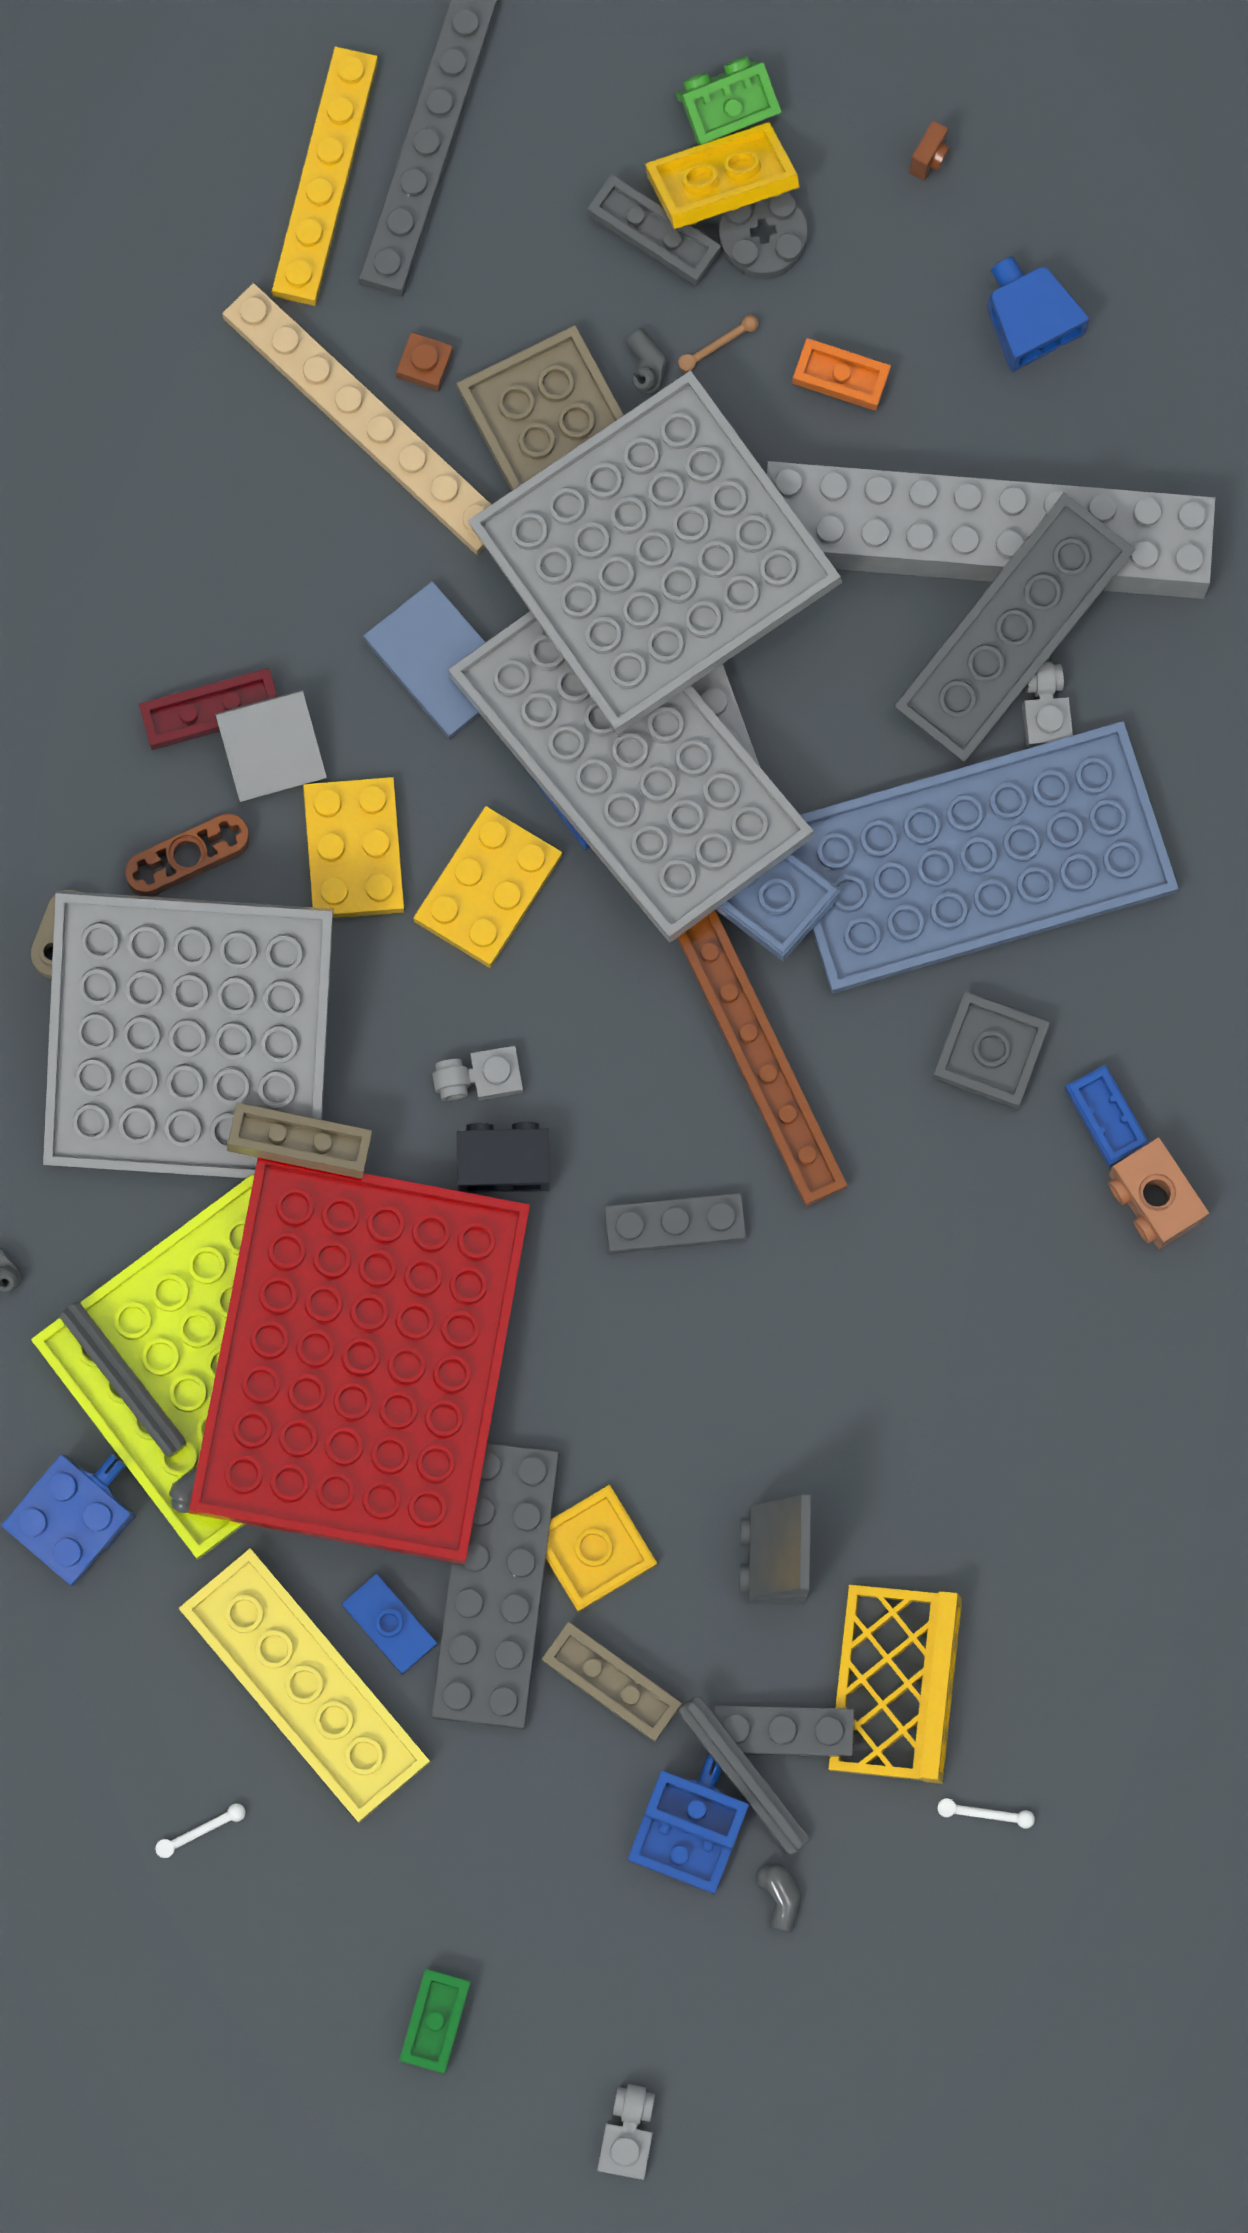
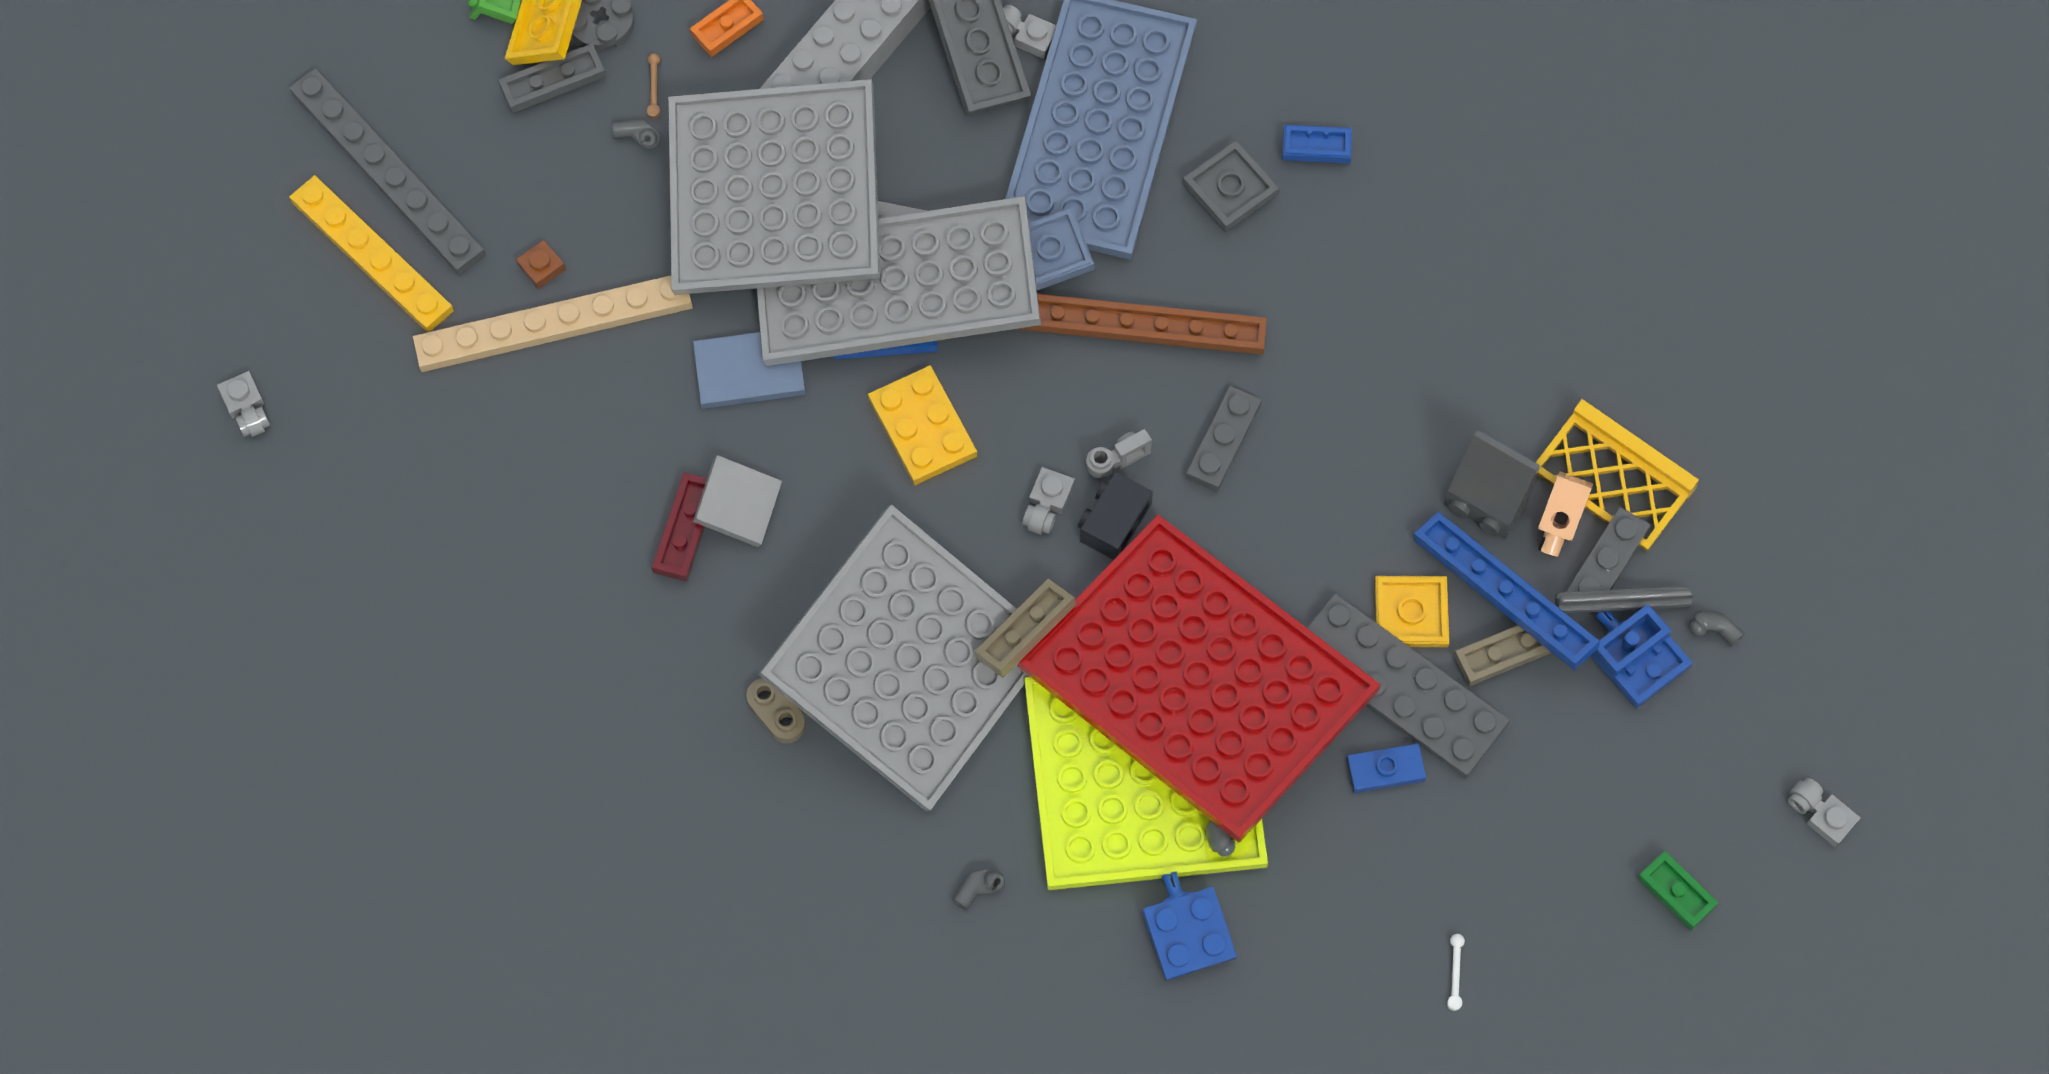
camera: 55 degrees left, 10 degrees down
(73, 153) = (245, 401): none -> light grey plate
(123, 1379) = (1115, 838): dark grey axle -> none
(222, 850) = (768, 574): dark orange beam -> none
(304, 1685) = (1396, 845): light yellow plate -> none
(354, 847) = (838, 491): yellow plate -> none
(539, 404) = (623, 210): dark tan plate -> none
(593, 1127) = (1128, 450): none -> light grey plate
(671, 1638) = (1506, 591): none -> blue plate
(810, 1648) = (1567, 496): none -> light nougat torso
(948, 1808) = (1714, 493): white hinge -> none
(1156, 1167) = (1400, 130): nougat brick -> none

